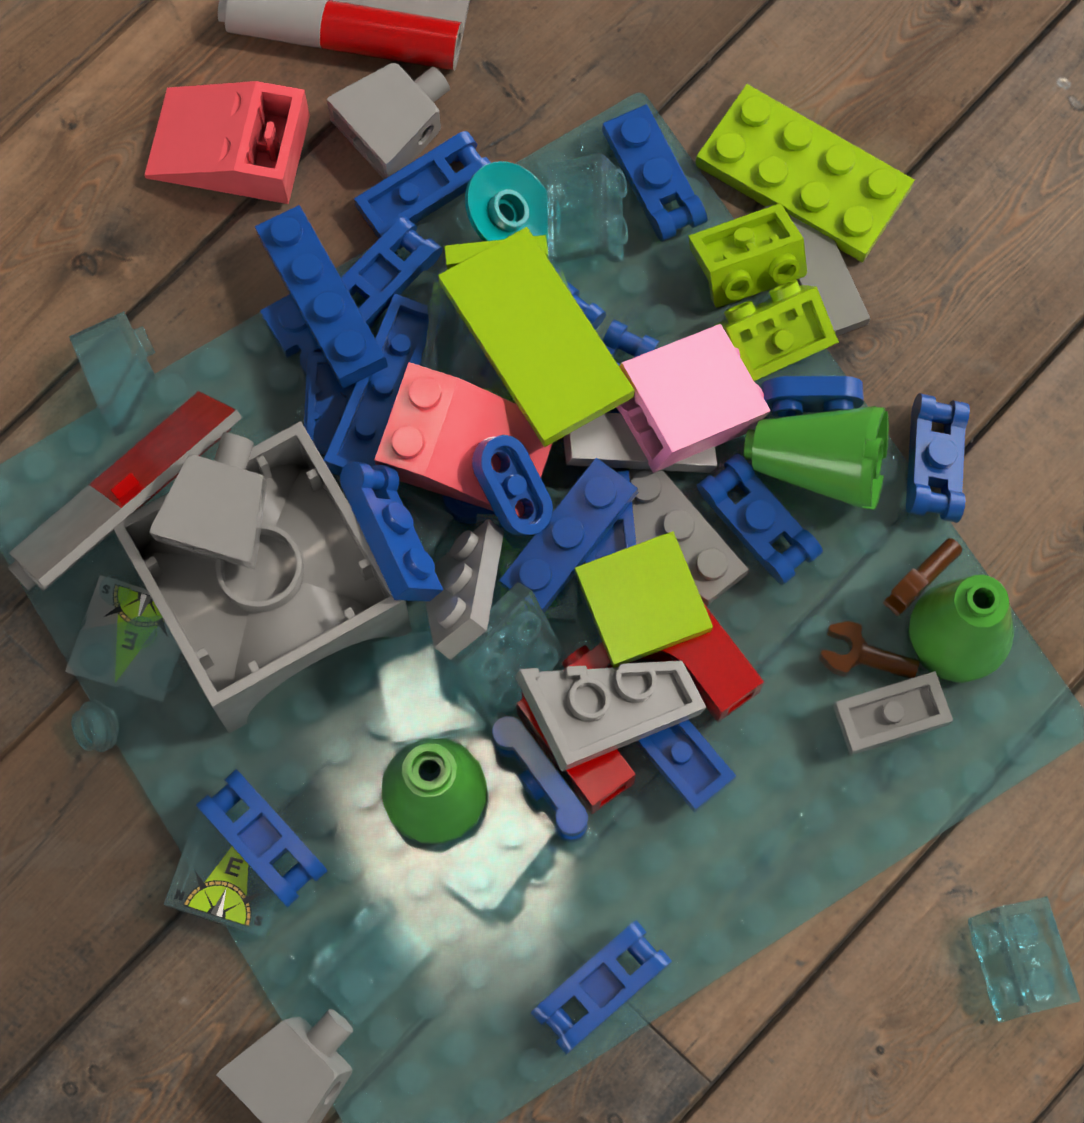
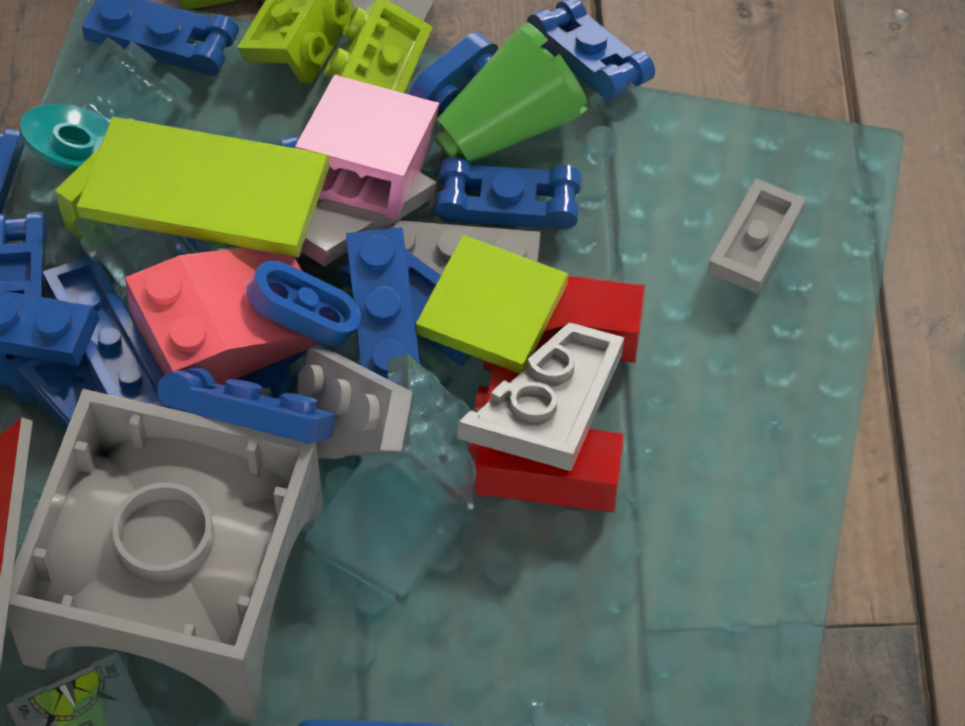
camera: 45 degrees left, 15 degrees down
(215, 505) = (86, 499): light grey torso -> none
(436, 808) = (474, 593): bright green cone -> none
(500, 859) = (585, 603): clear light blue bracket -> none
(541, 777) = (551, 510): blue plate -> none
(601, 987) = (766, 621): blue plate -> none
(688, 763) = (648, 402): blue plate -> none
(864, 654) = (687, 219): reddish brown bar -> none
(918, 579) = (673, 129): reddish brown bar -> none
(962, 628) = (741, 124): bright green cone -> none

